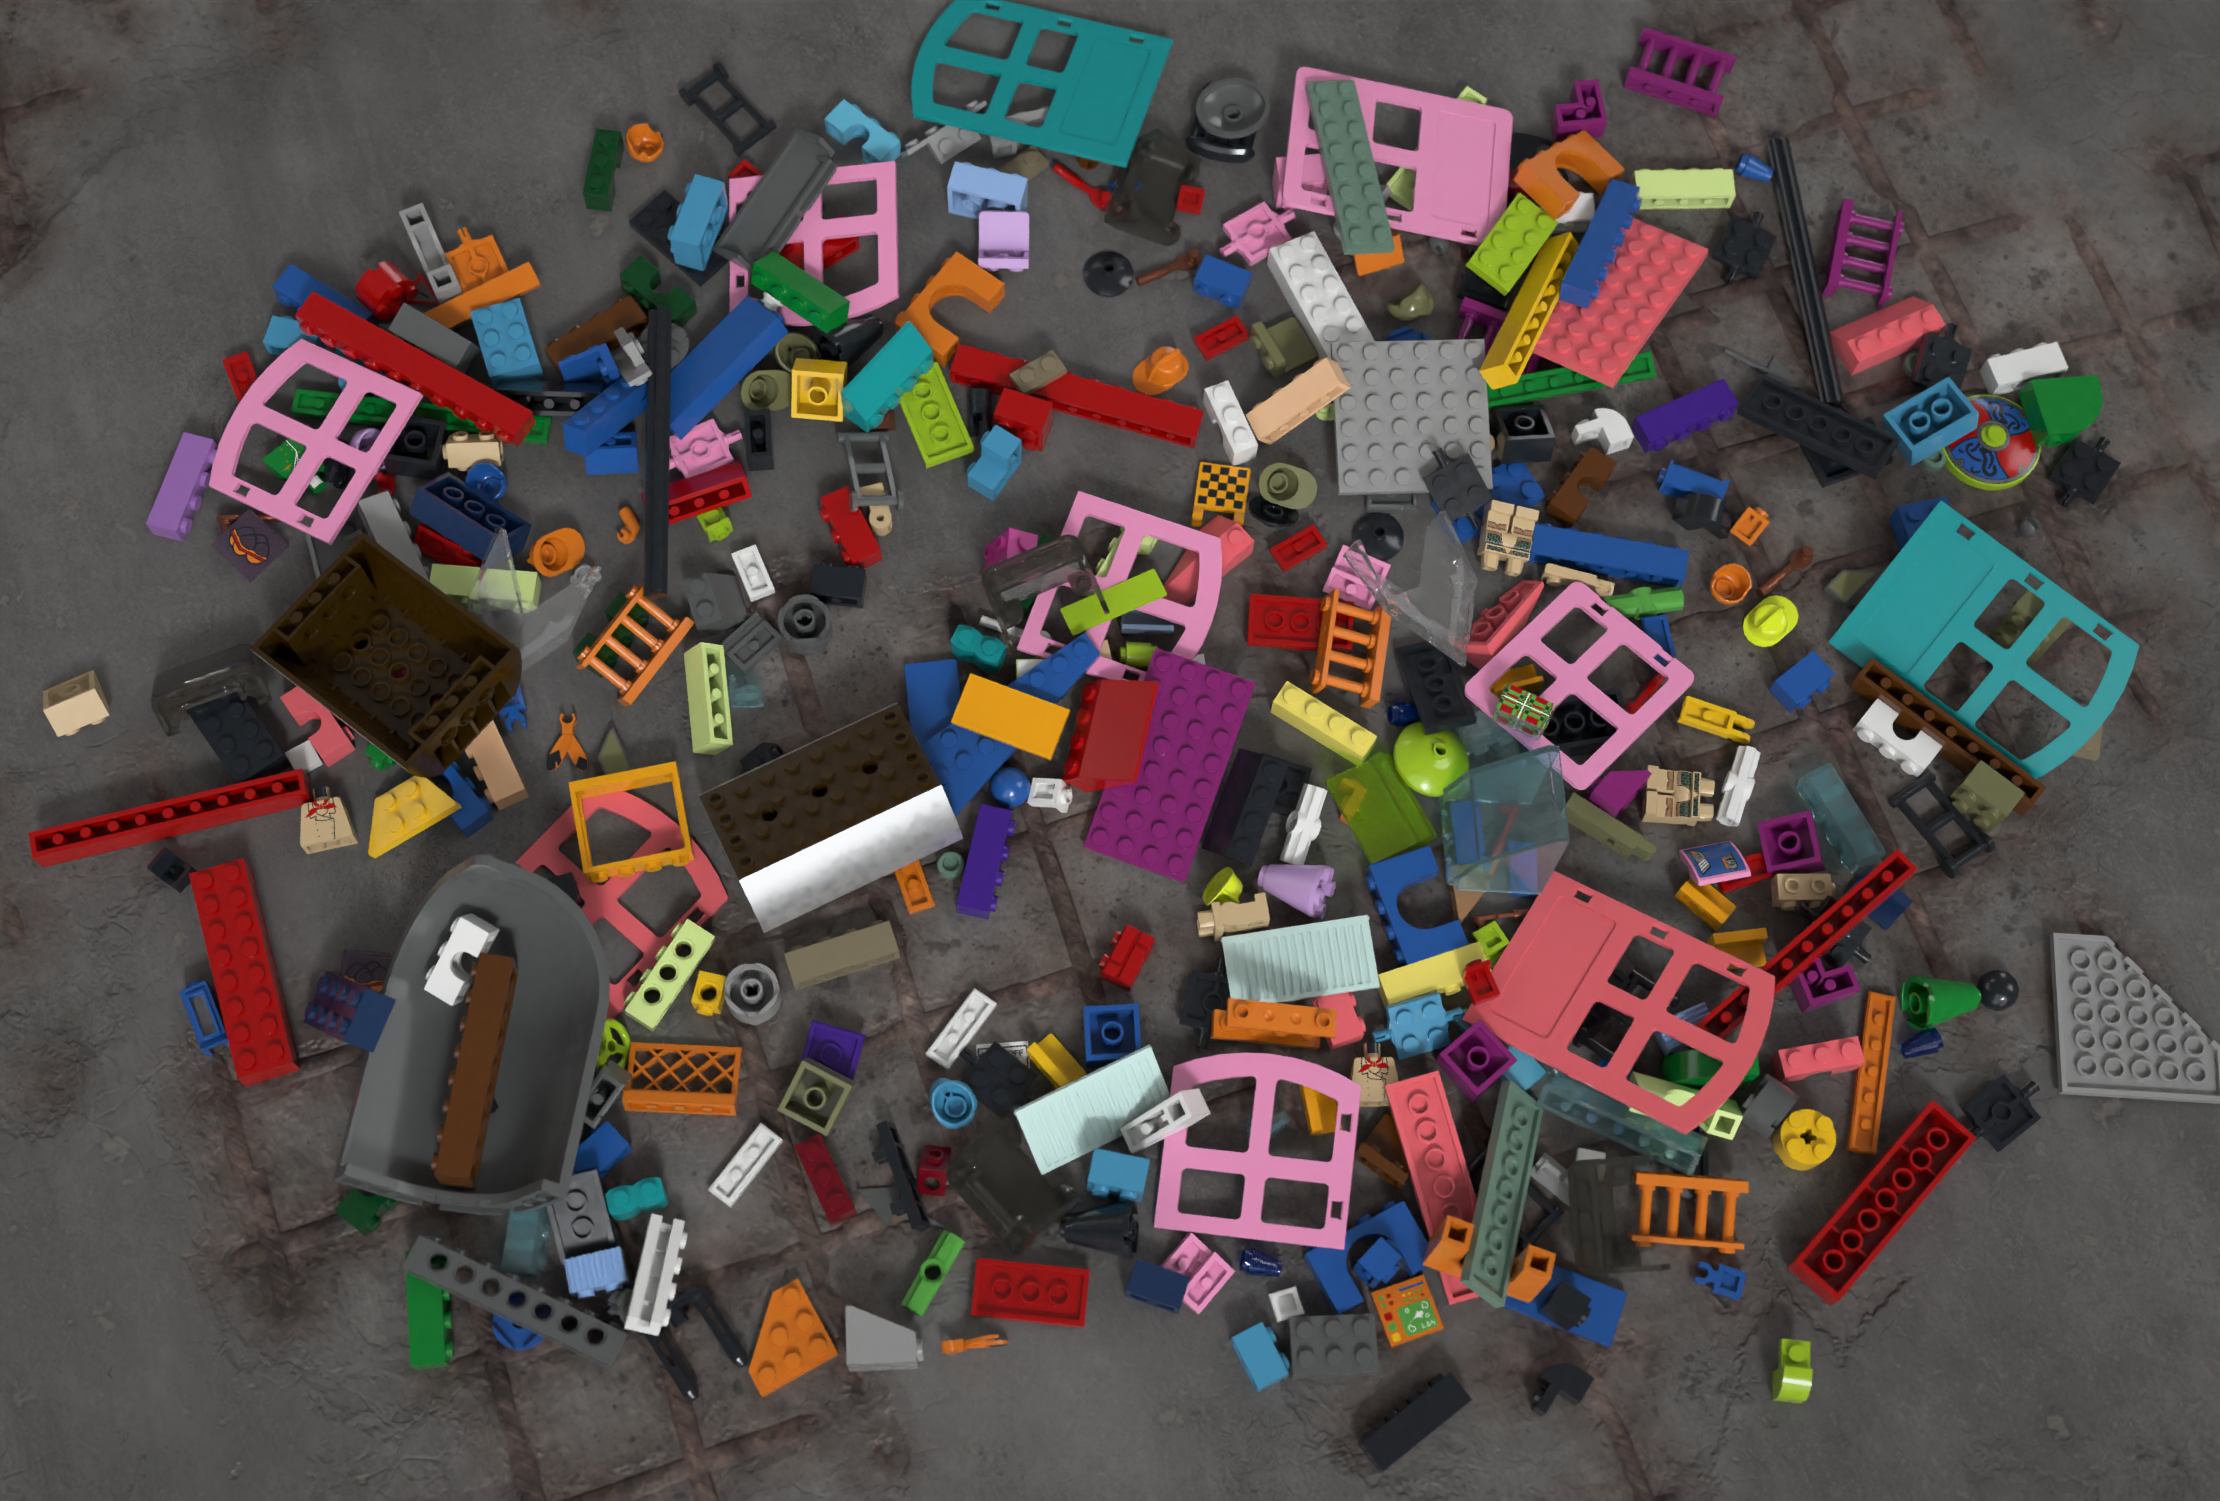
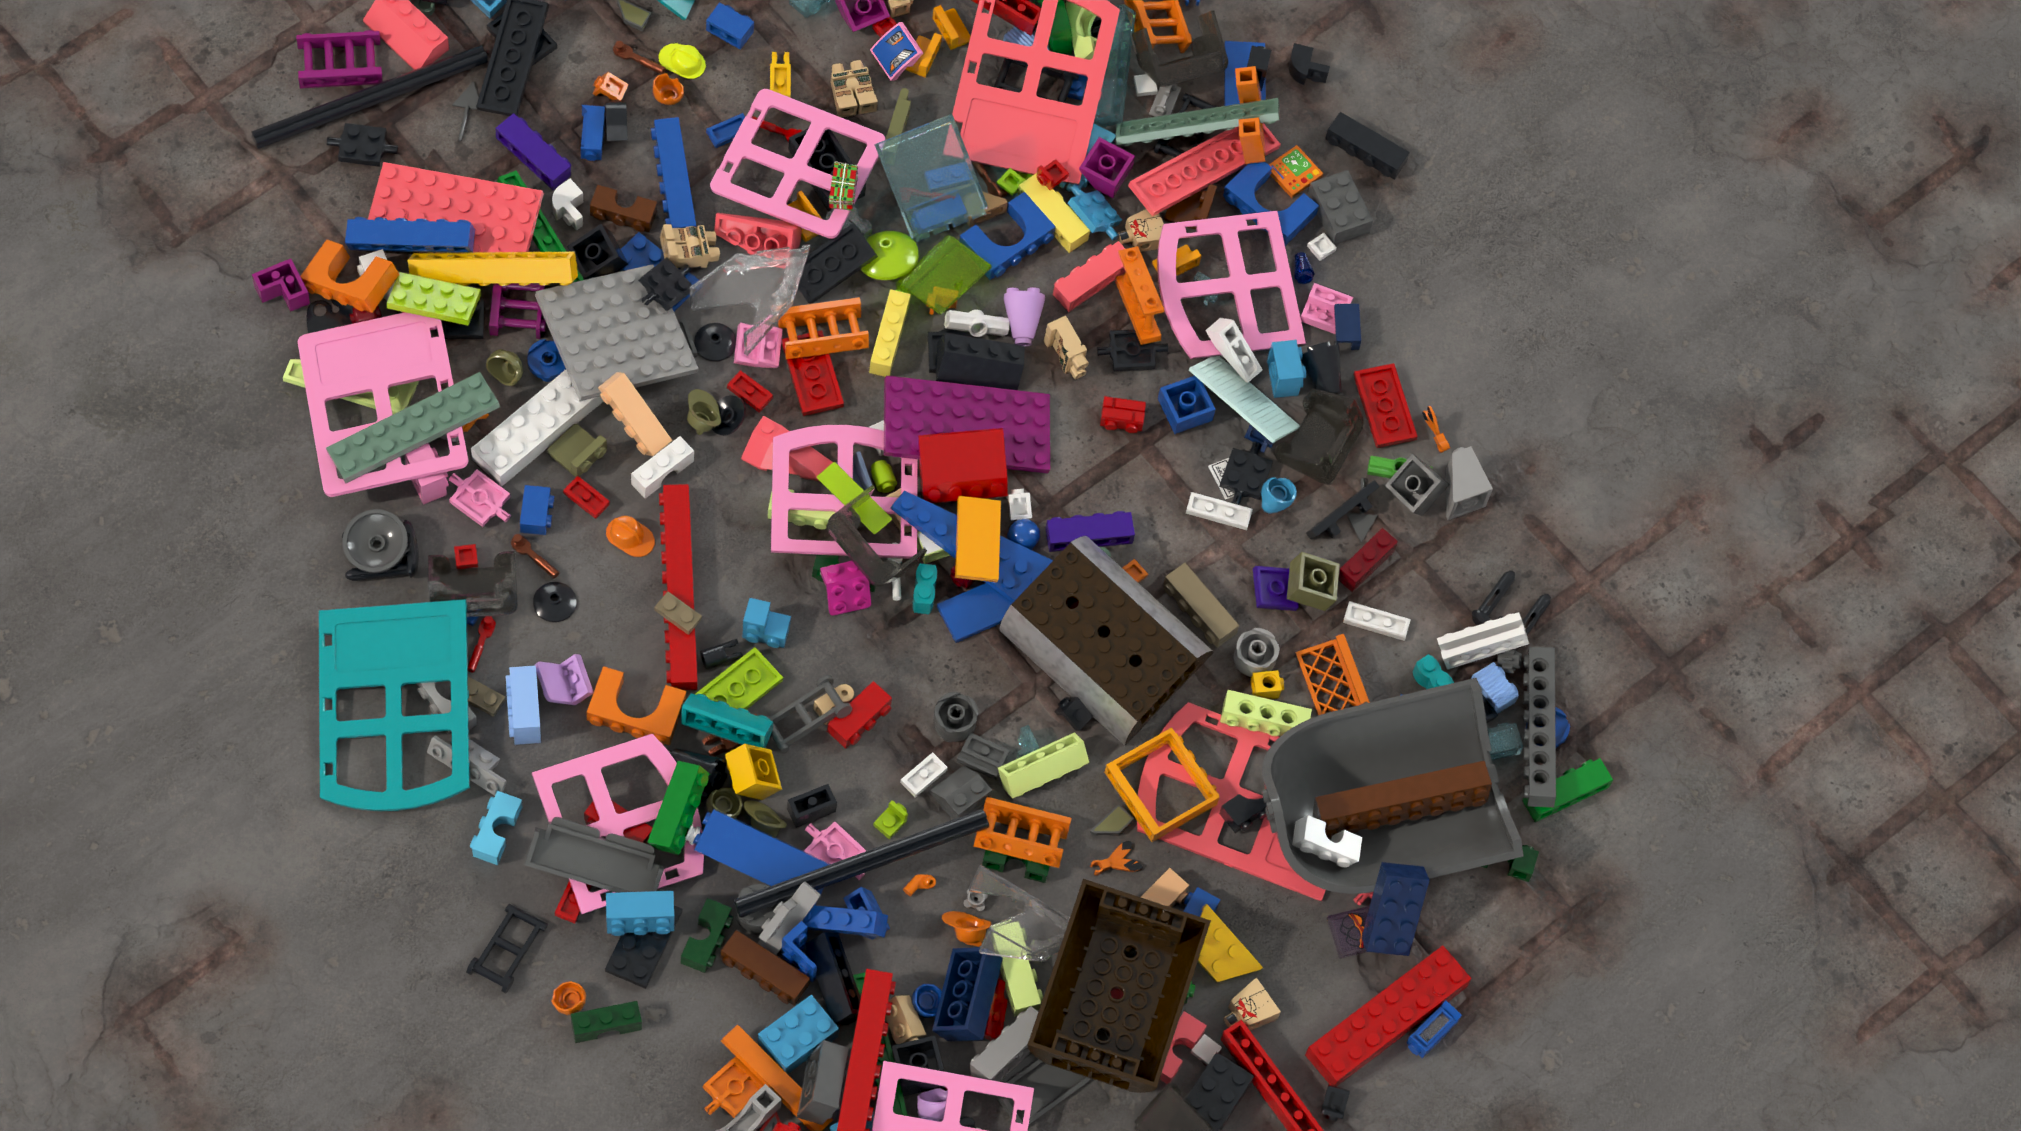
camera: 115 degrees left, 5 degrees down
(706, 492) = (872, 832): red brick -> none
(789, 1340) = (1483, 550): orange plate -> none
(839, 584) = (911, 707): black brick -> none
(896, 1278) = (1417, 485): none -> dark grey slope
(934, 1164) = (1325, 493): dark red bracket -> none
(1025, 418) = (722, 613): red brick -> none
(1055, 1062) = (1218, 439): yellow panel -> none
(1221, 490) = (720, 461): light orange flag -> none
(1223, 888) = (1048, 364): neon yellow piece -> none
(1260, 1356) = (1365, 250): dark azure brick -> none
(1301, 961) = (1083, 294): light aqua window -> none
(1378, 1263) = (1274, 190): blue brick -> none
(1401, 714) = (859, 284): clear blue cone -> none
(1558, 575) = (704, 191): tan hinge -> none
(1617, 790) = (871, 116): magenta slope -> none
(1646, 602) = (703, 143): bright green piece -> none
(1674, 91) = (229, 215): magenta fence -> none
(1685, 188) = (324, 197): yellowish green brick -> none
(1738, 786) = (827, 51): white piece -> none
(1751, 167) = (286, 153): blue cone -> none

